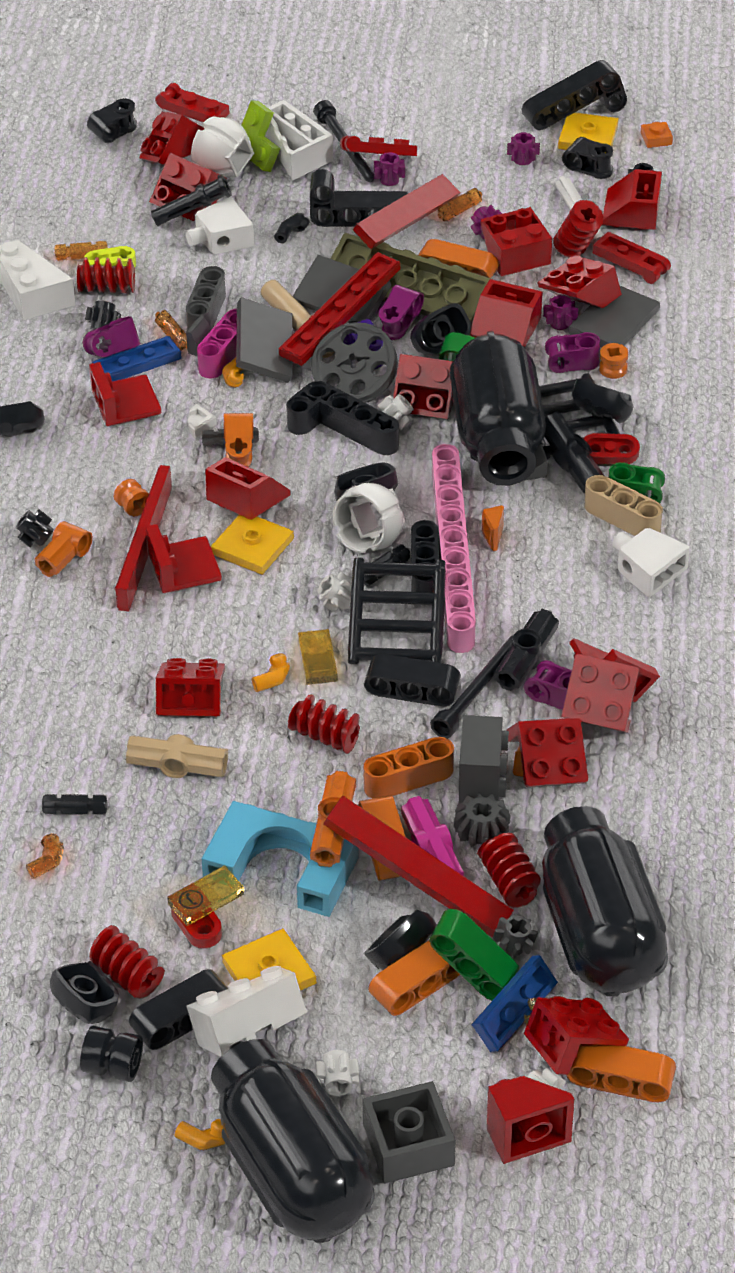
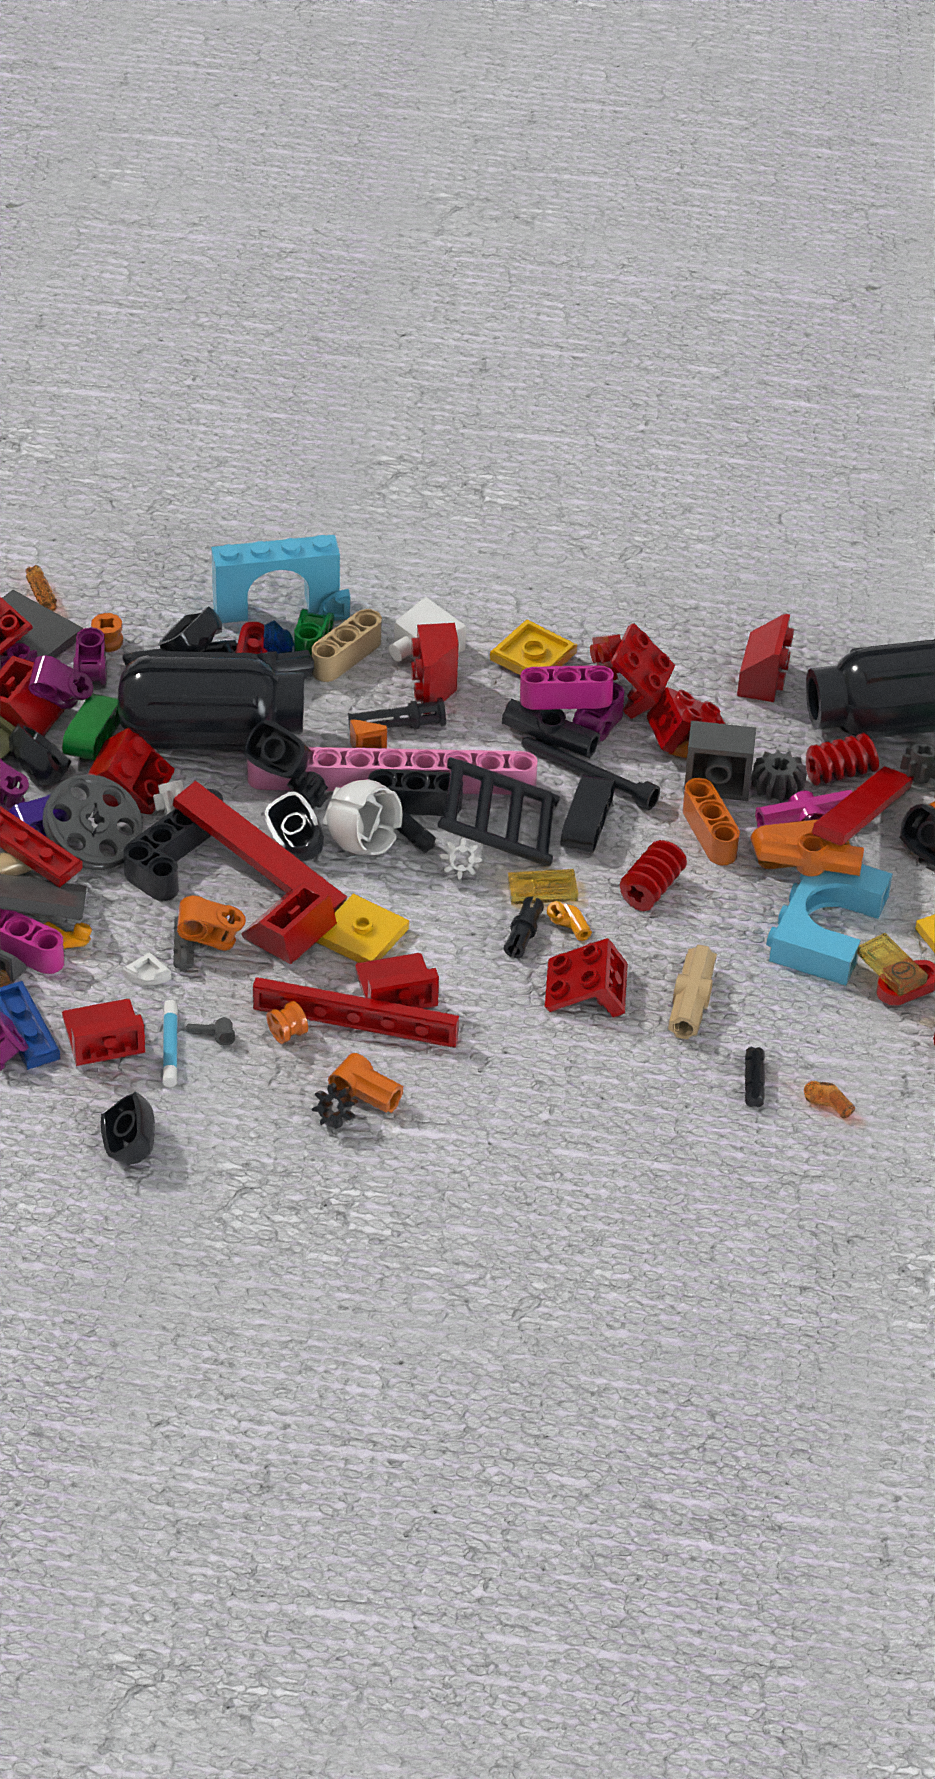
camera: 90 degrees left, 0 degrees up
(116, 439) = (170, 1043): none -> medium azure bar
(128, 465) = (221, 1029): none -> dark grey hand
(259, 642) = (523, 927): none -> black pin
(329, 462) = (250, 842): none -> red tile
(415, 491) = (311, 787): none -> black gear
(433, 450) = (277, 750): none -> black piece
(514, 318) = (55, 682): none -> magenta piece
(533, 556) = (413, 710): none -> black pin
(555, 637) = (566, 687): none -> dark pink beam
(586, 556) = (435, 662): none -> red slope
(614, 455) = (277, 638): none -> clear blue plate
(643, 636) = (532, 647): none -> yellow plate
(648, 808) = (765, 659): none -> red slope
(669, 320) = (41, 587): none -> clear orange axle
(679, 501) = (338, 604): none -> medium azure tile
(682, 426) = (241, 564): none -> medium azure arch

